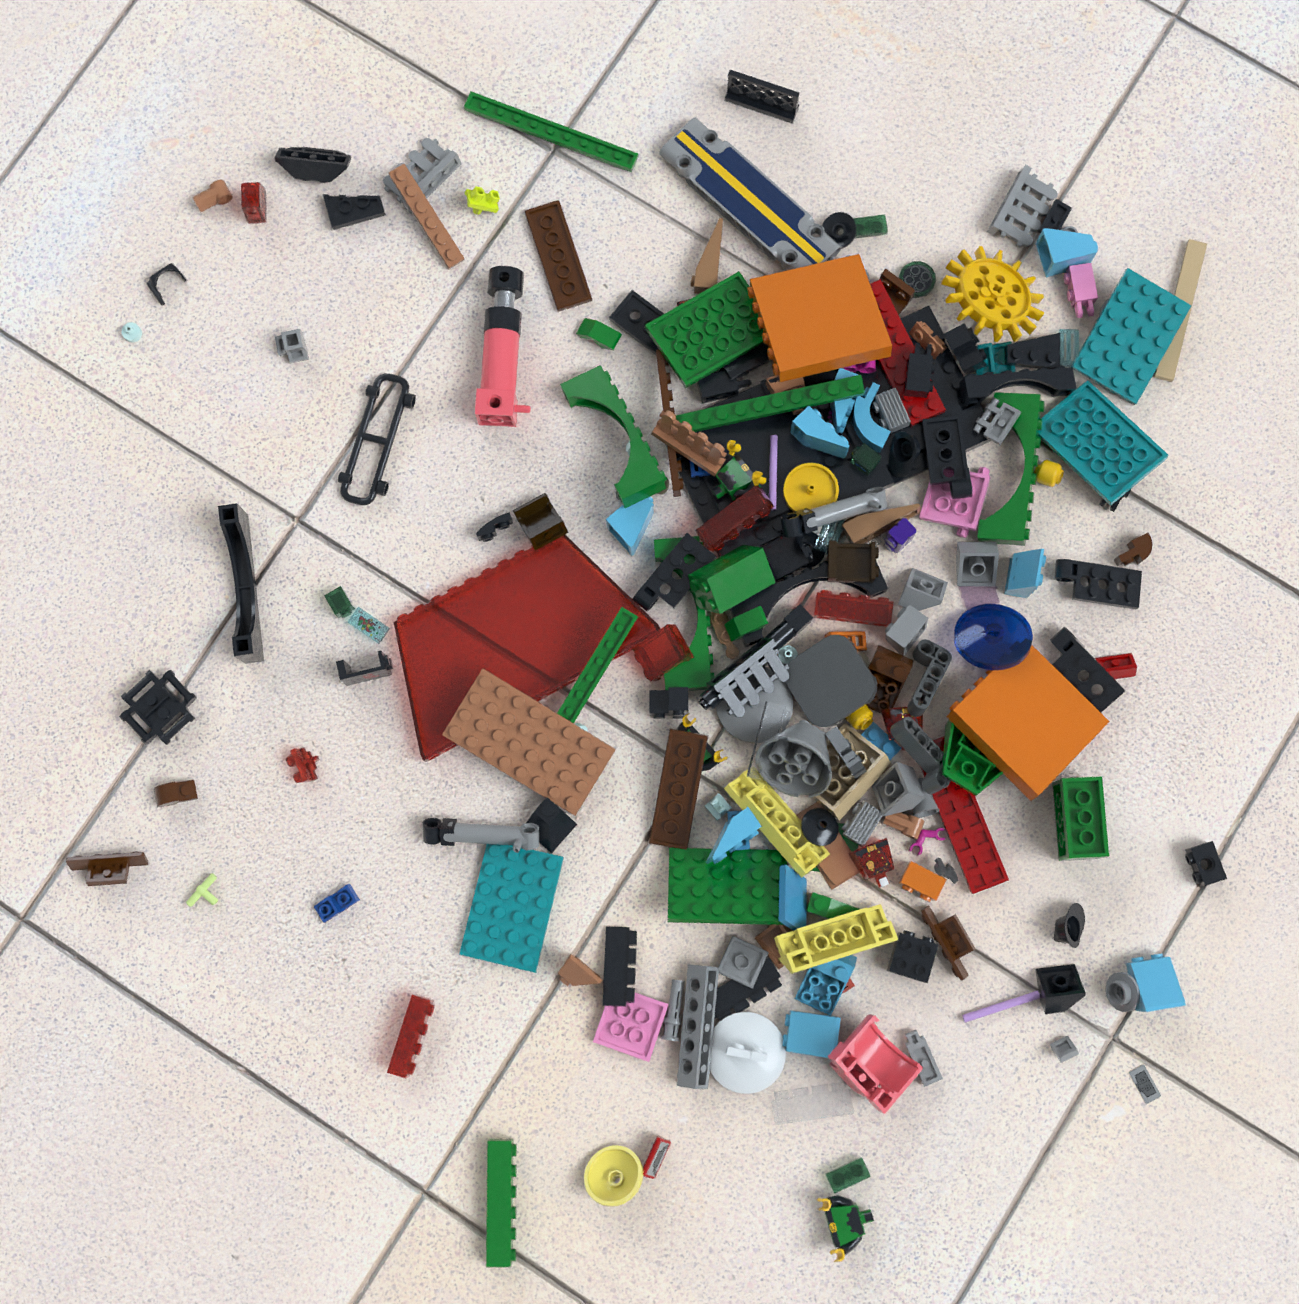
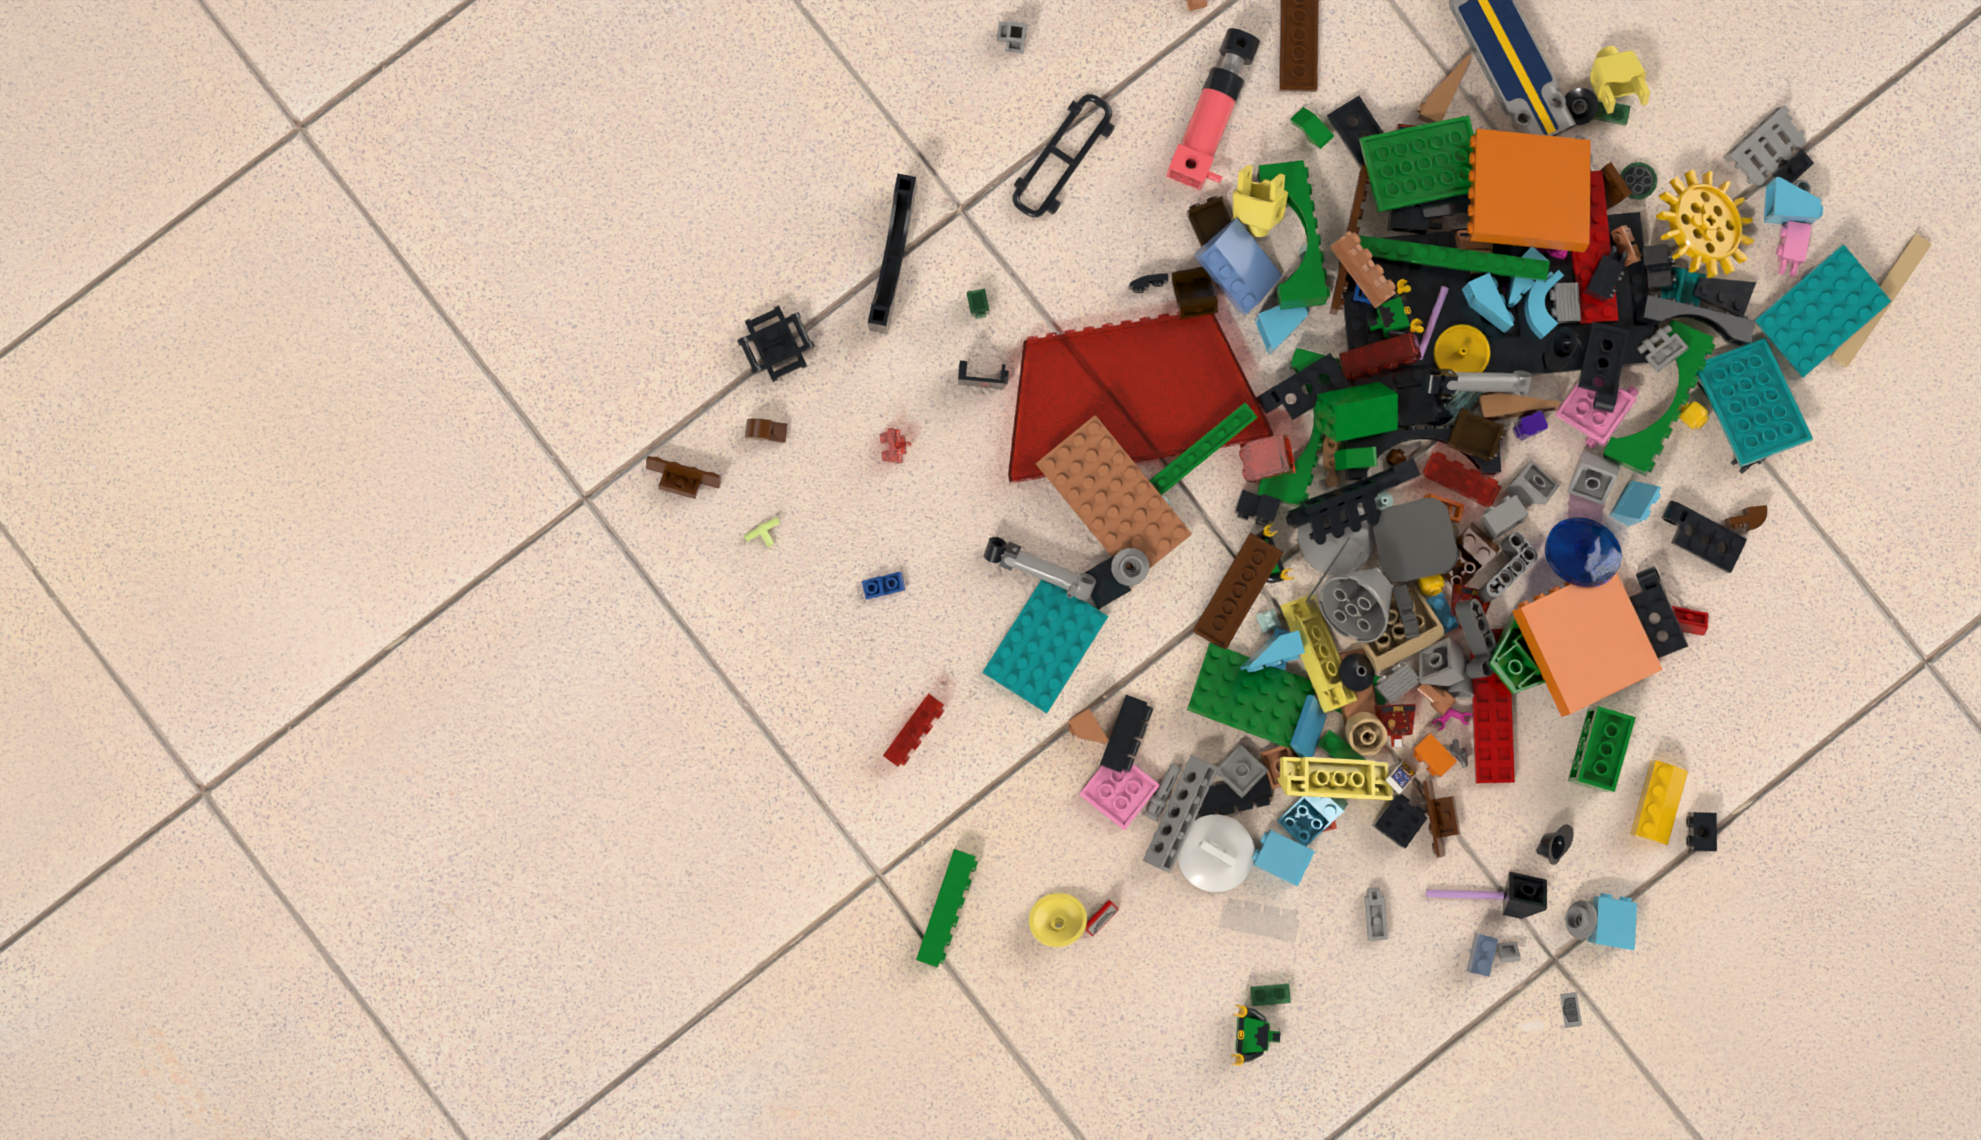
camera: 10 degrees right, 5 degrees up
(368, 625) = (997, 334): clear light blue tile -> none
(537, 454) = (1208, 218): none -> dark brown panel
(573, 418) = (1259, 204): none -> light yellow piece
(573, 482) = (1238, 266): none -> medium blue slope
(573, 808) = (1139, 568): none -> light grey piece
(784, 609) = (1395, 457): none -> reddish brown piece
(859, 885) = (1375, 733): none -> tan brick
(864, 190) = (1618, 76): none -> light yellow piece
(865, 458) = (1524, 340): clear green brick -> none
(873, 1061) = (1329, 904): coral piece -> none
(898, 913) = (1401, 776): none -> tile
(1039, 1061) = (1482, 954): none -> sand blue brick
(1068, 332) = (1764, 284): clear light blue tile -> none
(1153, 850) = (1659, 802): none -> yellow slope

